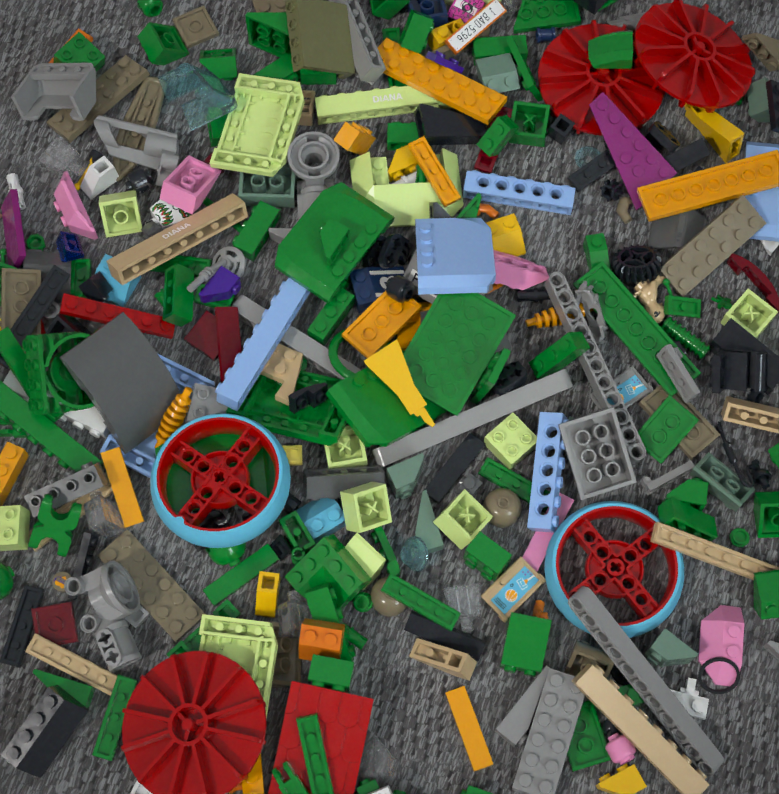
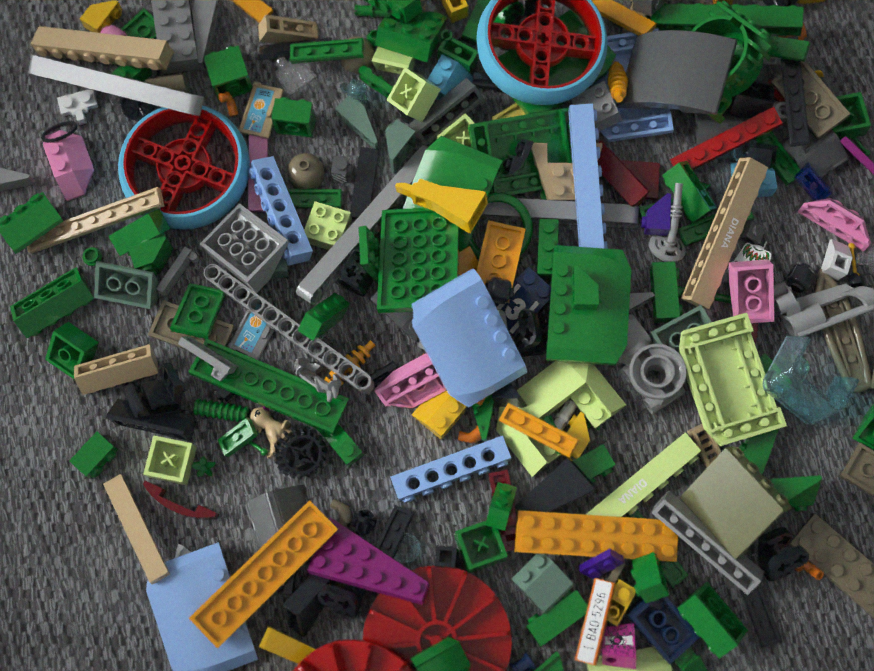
camera: 155 degrees right, 5 degrees up
(36, 242) = (844, 173): green tile -> none
(120, 213) = (795, 240): yellowish green slope -> none
(220, 62) = (817, 441): green slope -> none
(355, 138) = (633, 420): light orange brick -> none
(462, 519) = (330, 135): yellowish green brick -> none
(523, 70) = (519, 601): green wing -> none
(669, 651) = (106, 124): sand green slope -> none
(712, 245) = (236, 511): dark tan plate -> none
(760, 476) = (96, 318): black piece -> none

